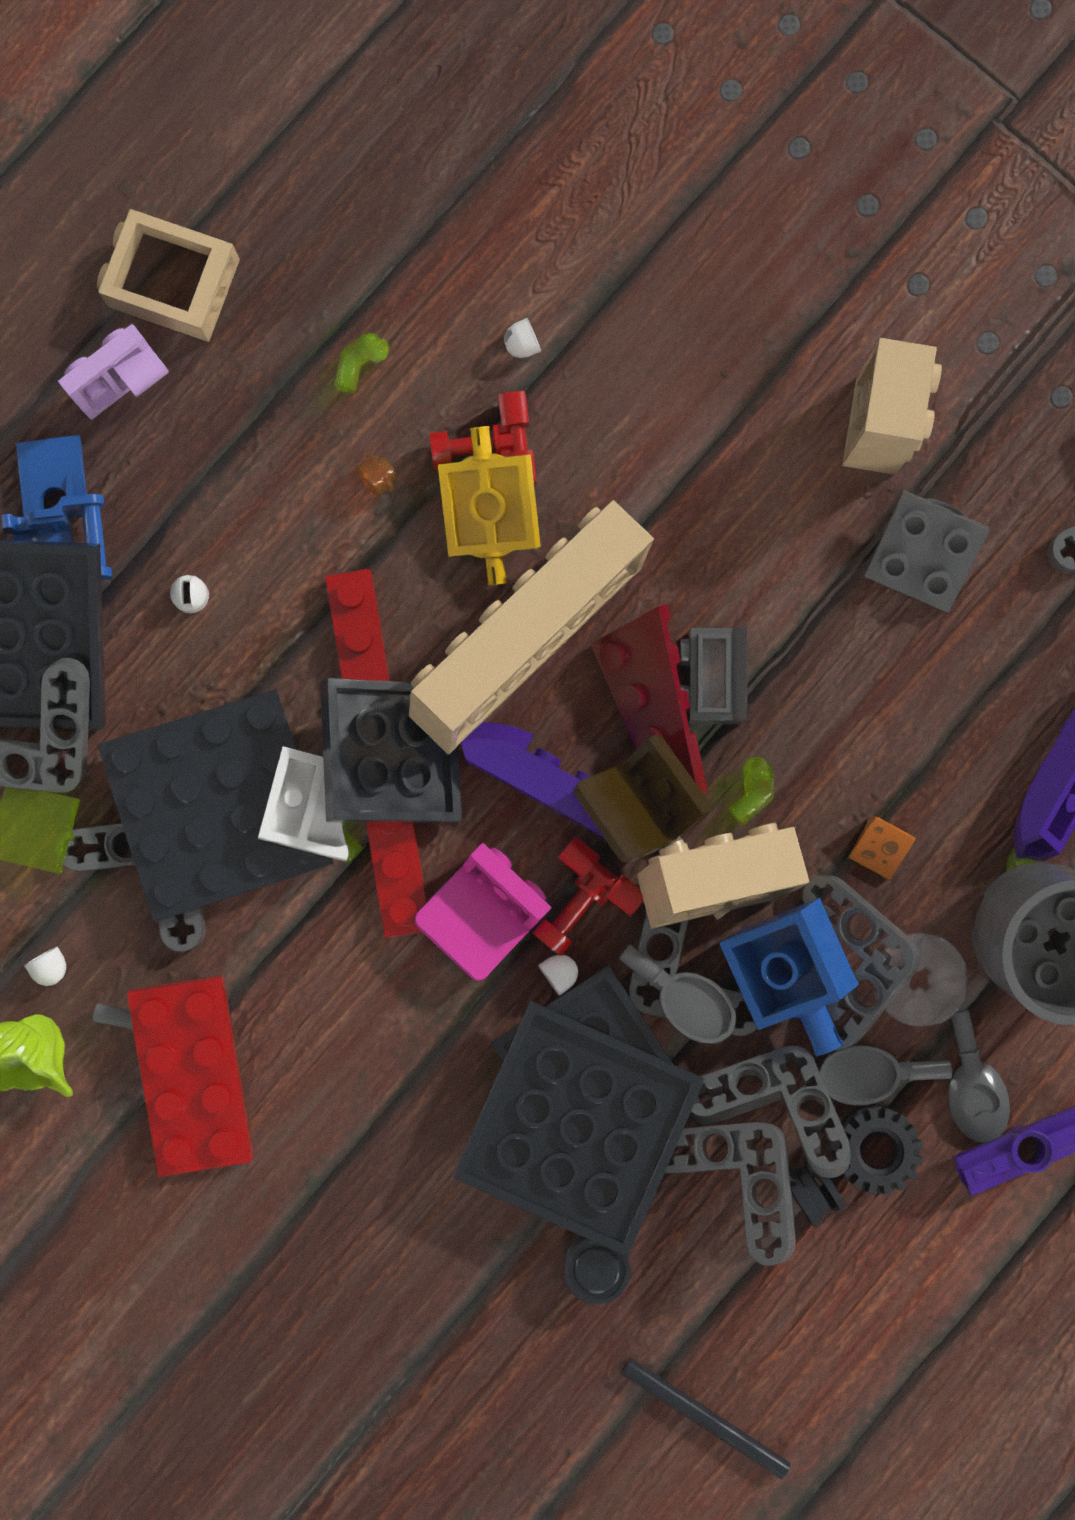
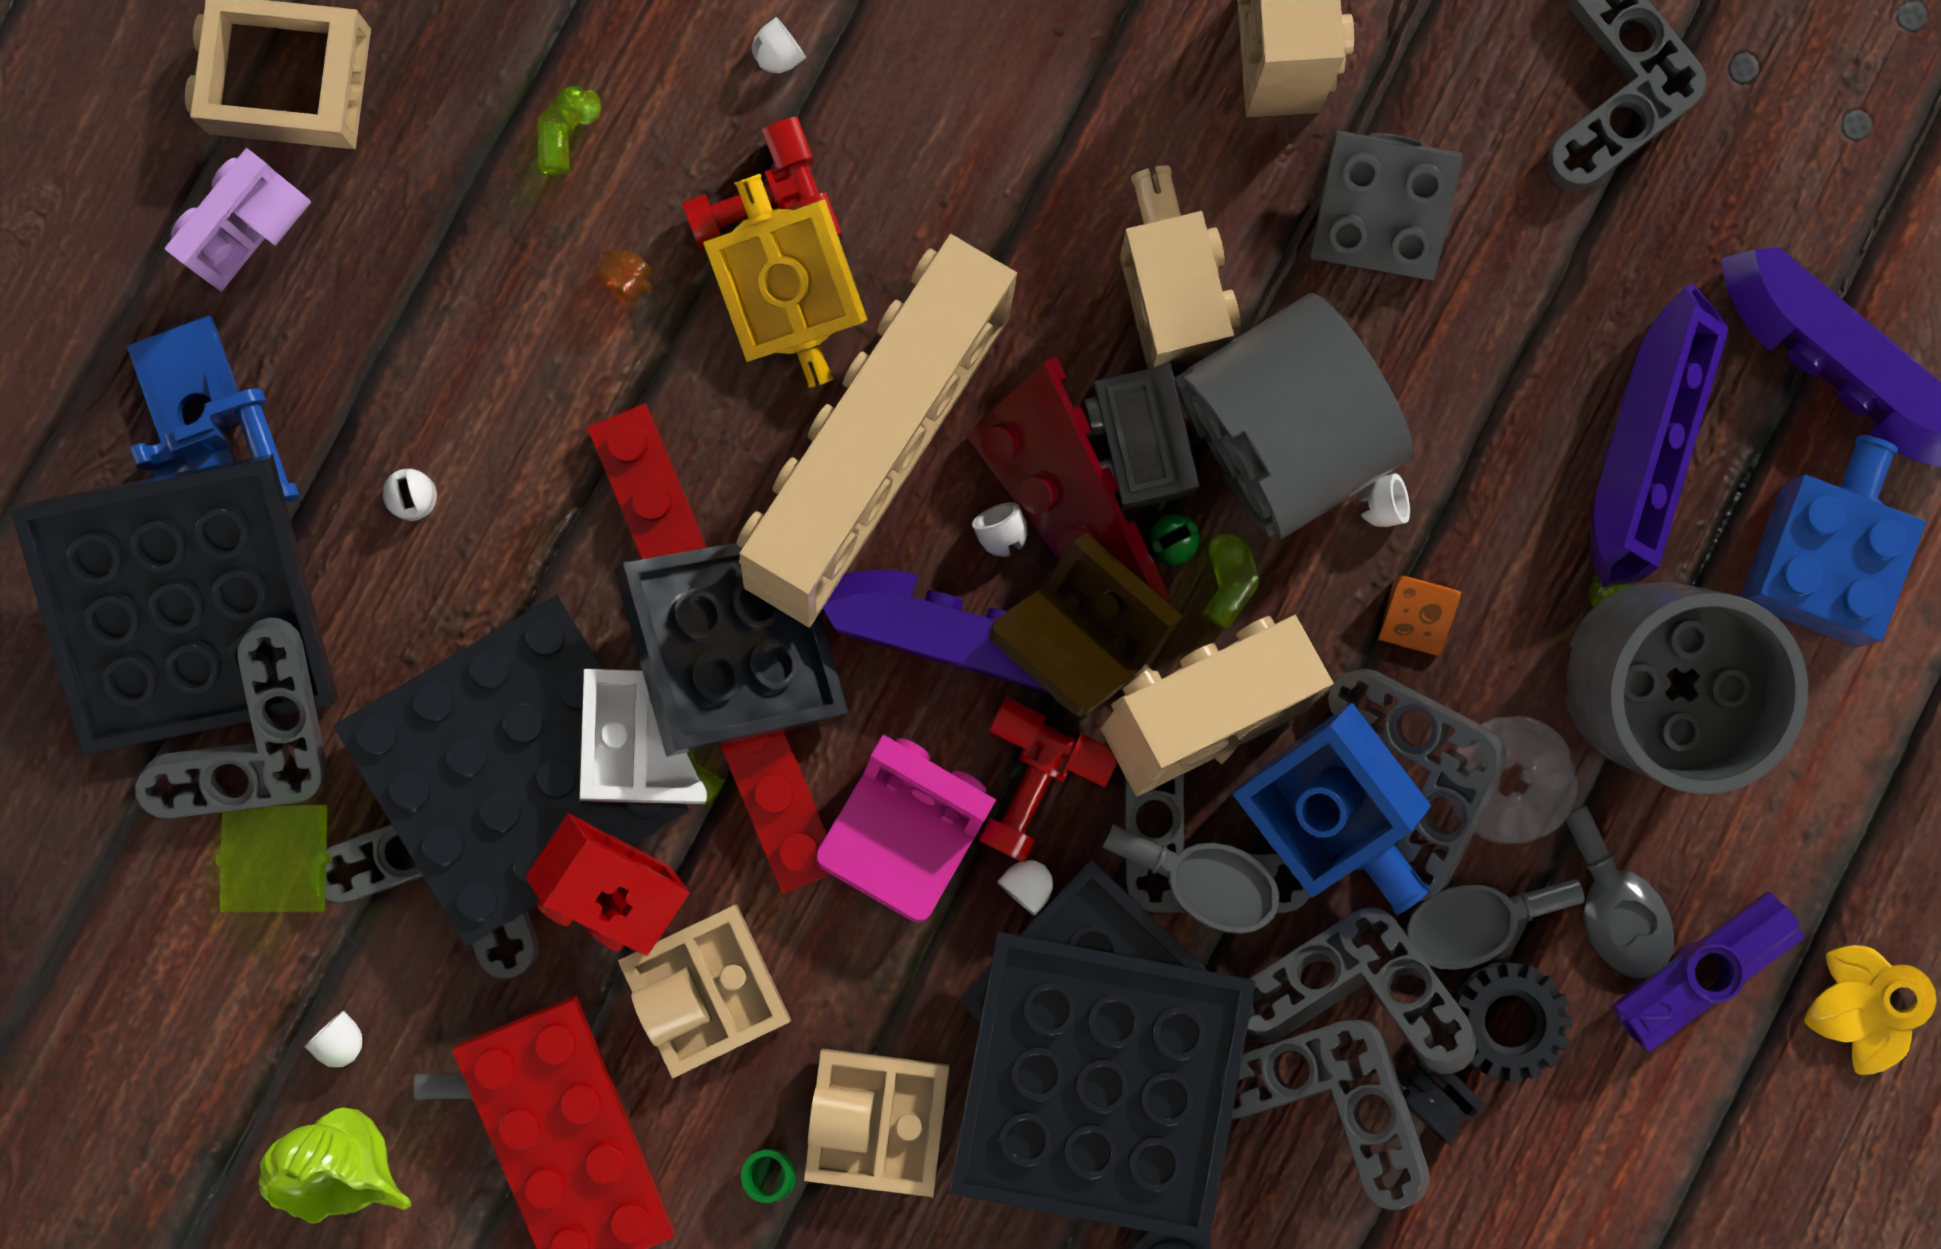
camera: 10 degrees left, 0 degrees up
(262, 903) = (606, 887): none -> red brick
(313, 993) = (704, 991): none -> tan plate
(321, 1130) = (757, 1173): none -> green hinge
(413, 1115) = (876, 1122): none -> tan plate
(600, 715) = (1001, 527): none -> white hinge
(723, 761) = (1182, 549): none -> green hinge
(765, 569) = (1175, 278): none -> tan brick
(827, 685) = (1296, 415): none -> dark grey brick
(877, 761) = (1387, 501): none -> white hinge

